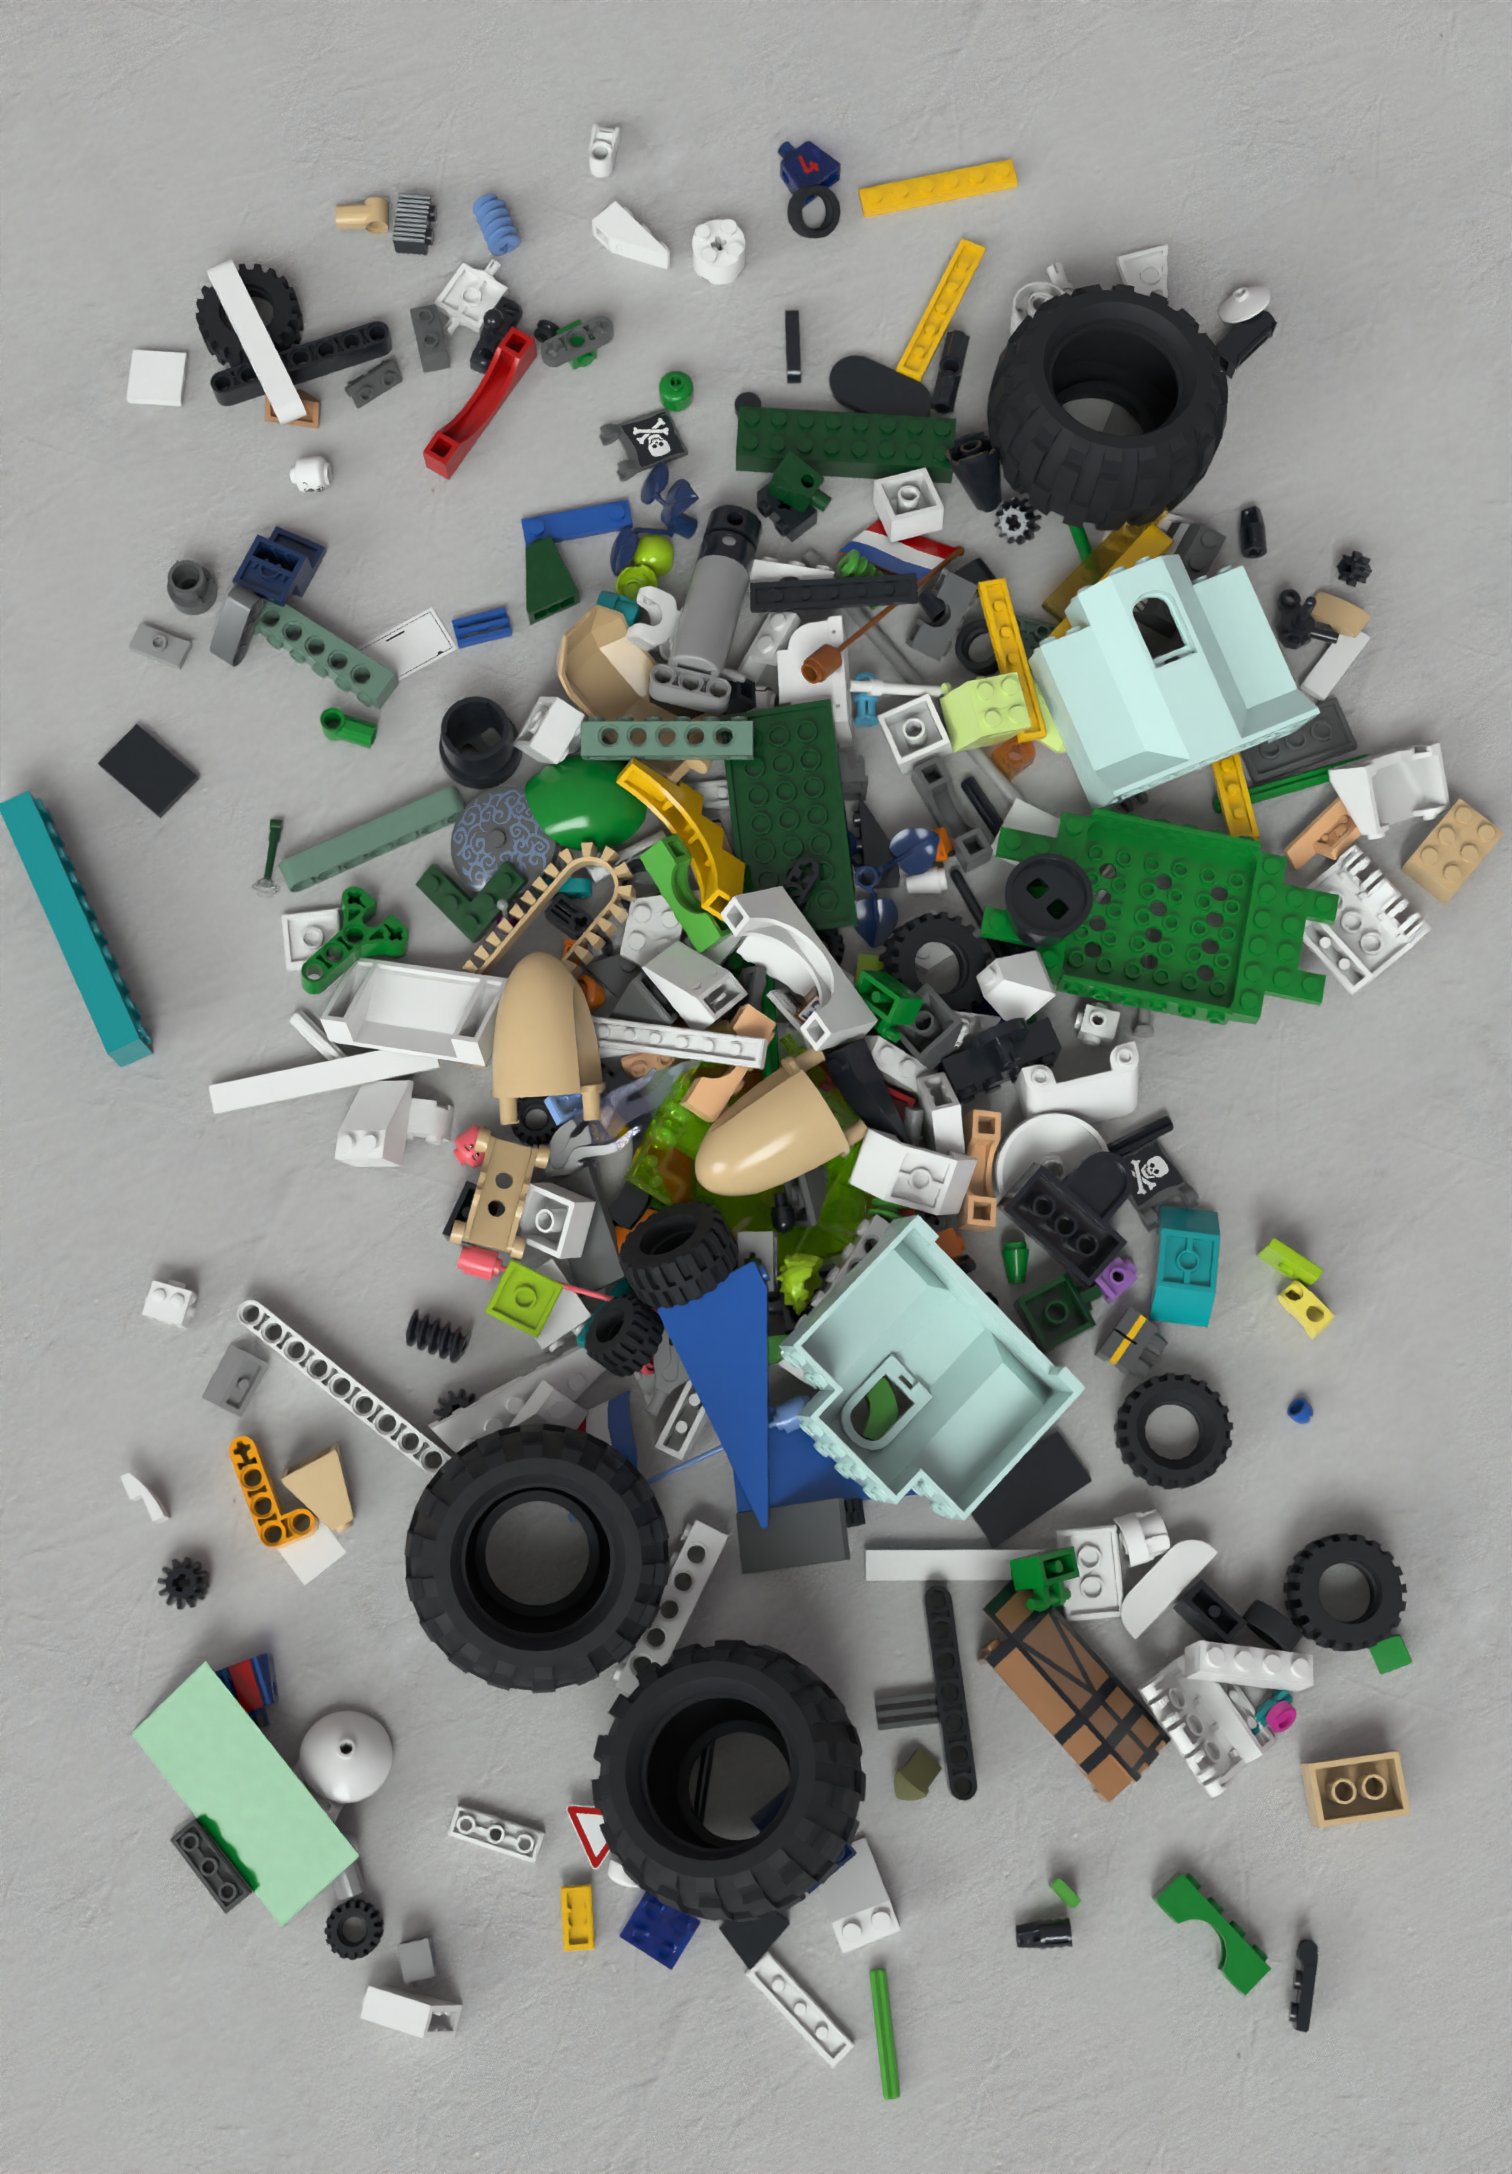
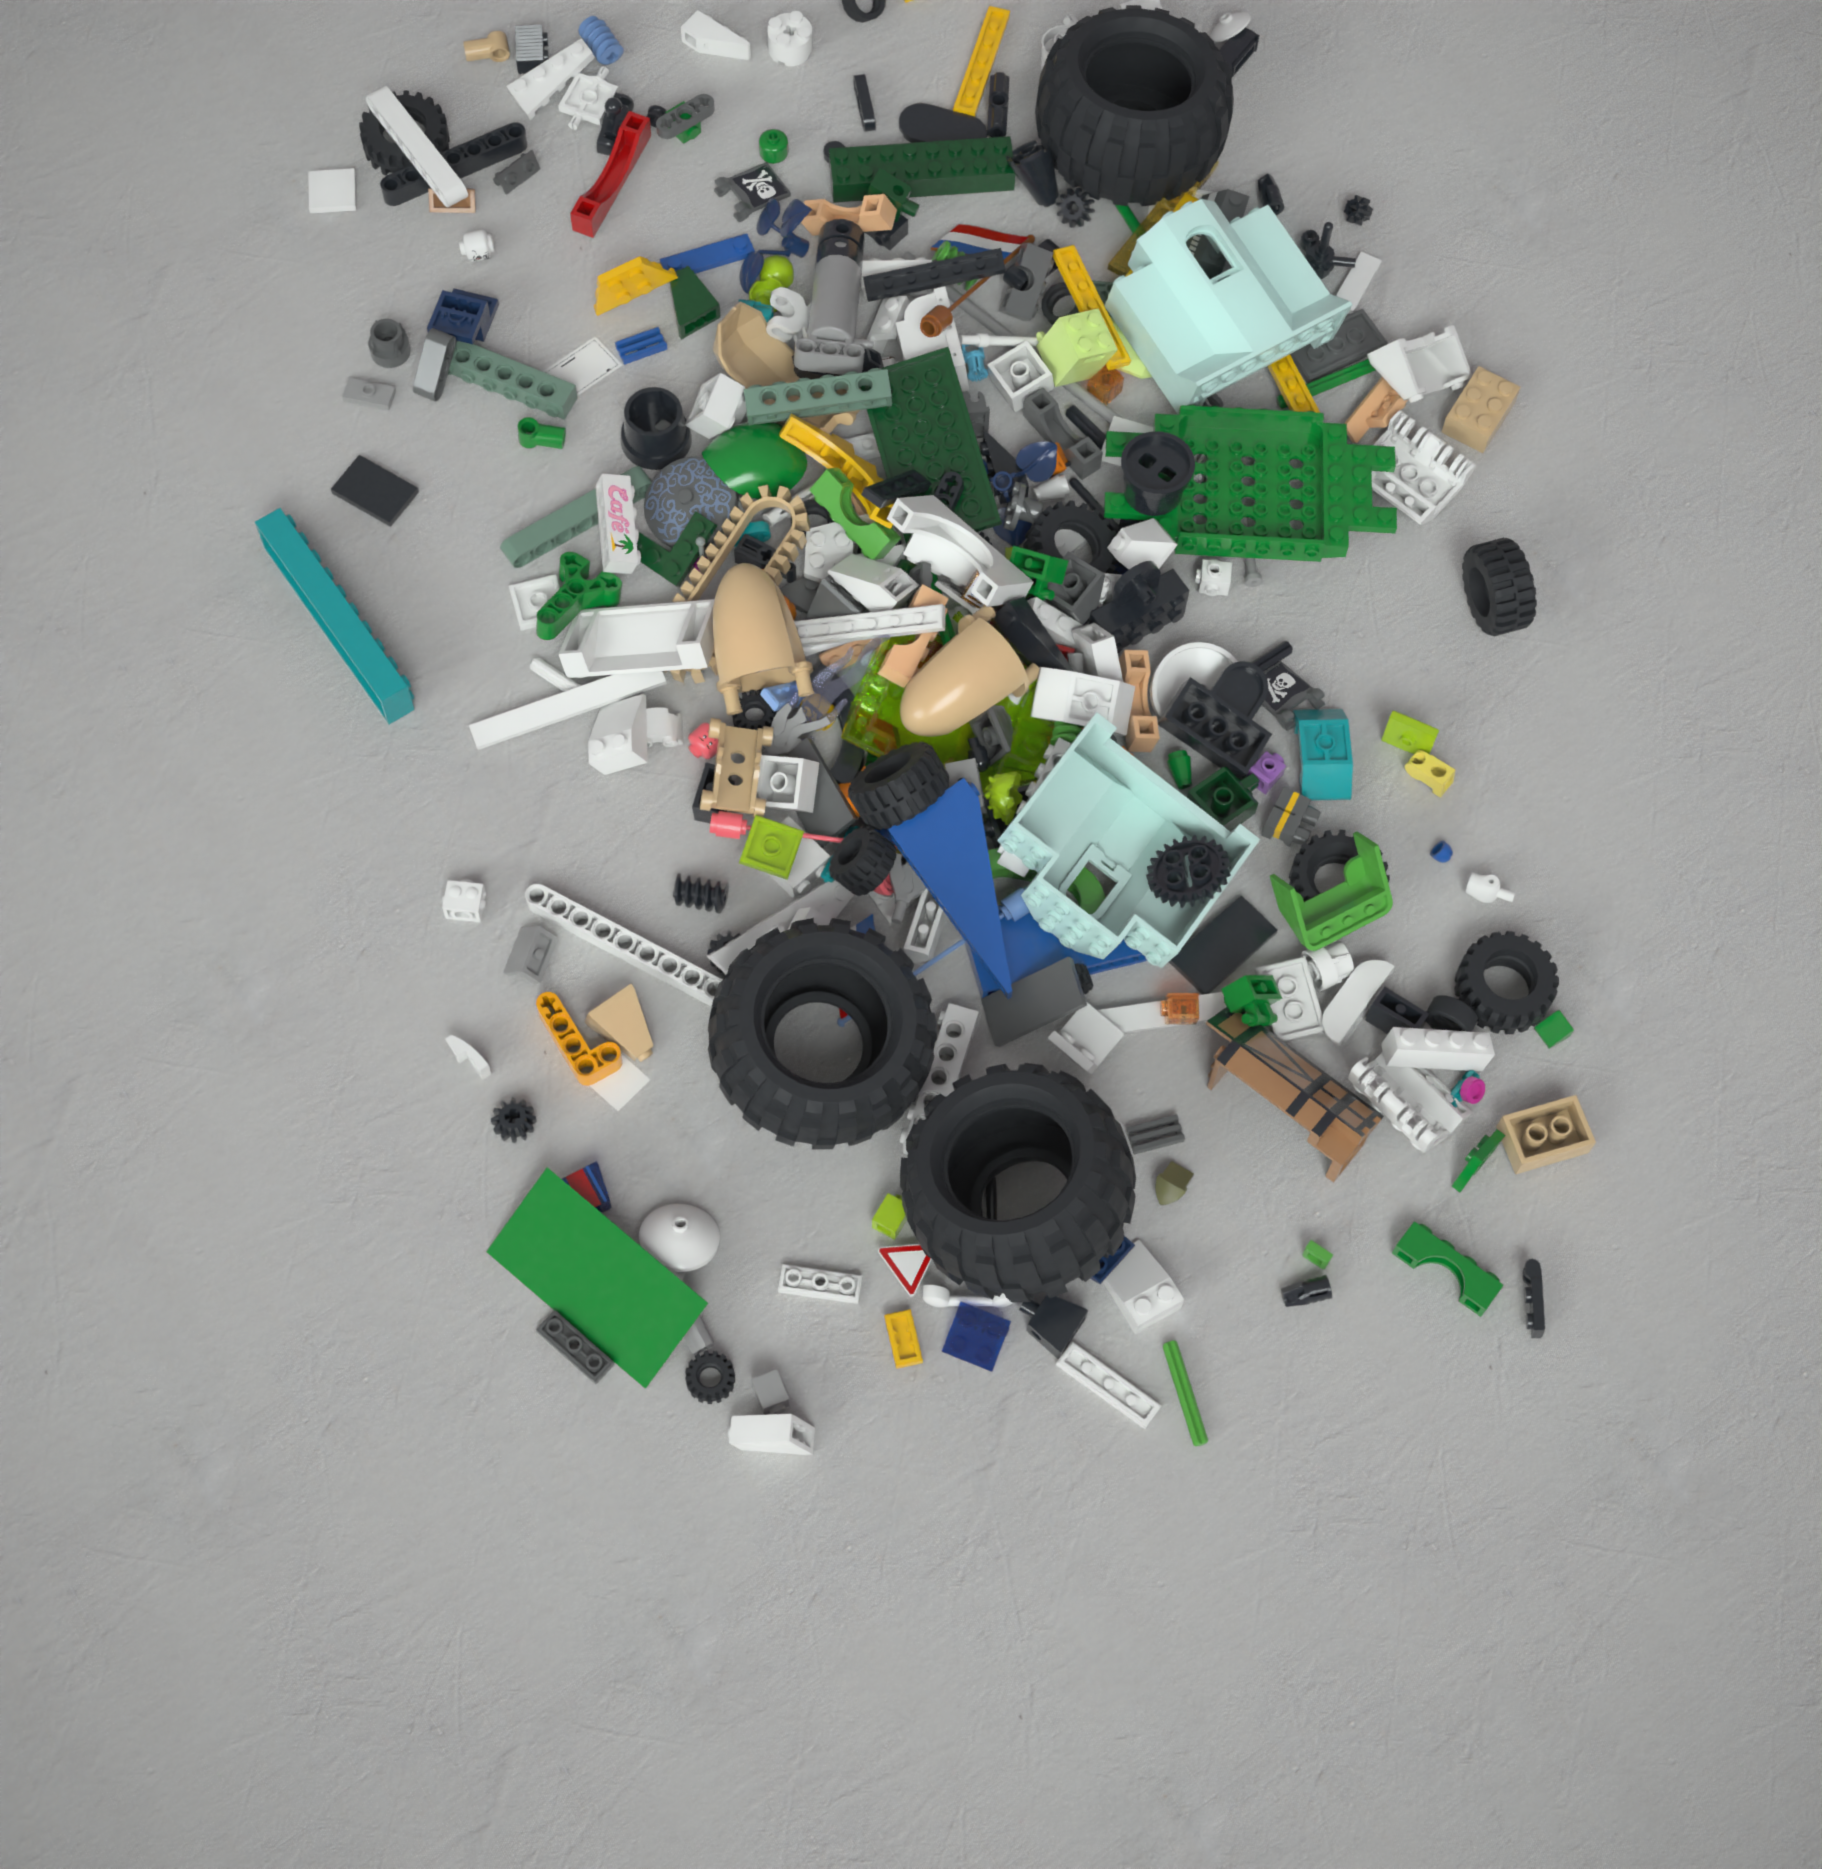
camera: 10 degrees left, 10 degrees down
(266, 886) = (491, 565): piece -> none
(413, 862) = (617, 524): none -> white brick
(422, 268) = (544, 80): none -> white wing
(429, 338) = (559, 132): dark grey brick -> none
(477, 551) = (629, 282): none -> yellow wing
(584, 1768) = (890, 1216): none -> lime brick
(738, 875) = (899, 486): none -> black tile
(772, 504) = (873, 215): none -> light nougat arch
(846, 1587) = (1087, 1038): none -> white bracket
(884, 911) = (1021, 507): none -> dark grey plate
(908, 505) = (982, 206): white brick -> none
(958, 1705) = (1189, 1123): black beam -> none
(960, 1567) = (1180, 1008): none -> clear orange brick
(1022, 1414) = (1207, 870): none -> black gear
(1089, 1097) = (1226, 625): white windscreen -> none
(1167, 1475) = (1343, 908): none -> bright green windscreen
(1272, 1805) = (1477, 1158): none -> green wing
(1339, 614) = (1353, 245): tan slope -> none
(1345, 1469) = (1487, 889): none -> white piece
(1429, 1095) = (1499, 586): none -> black tyre

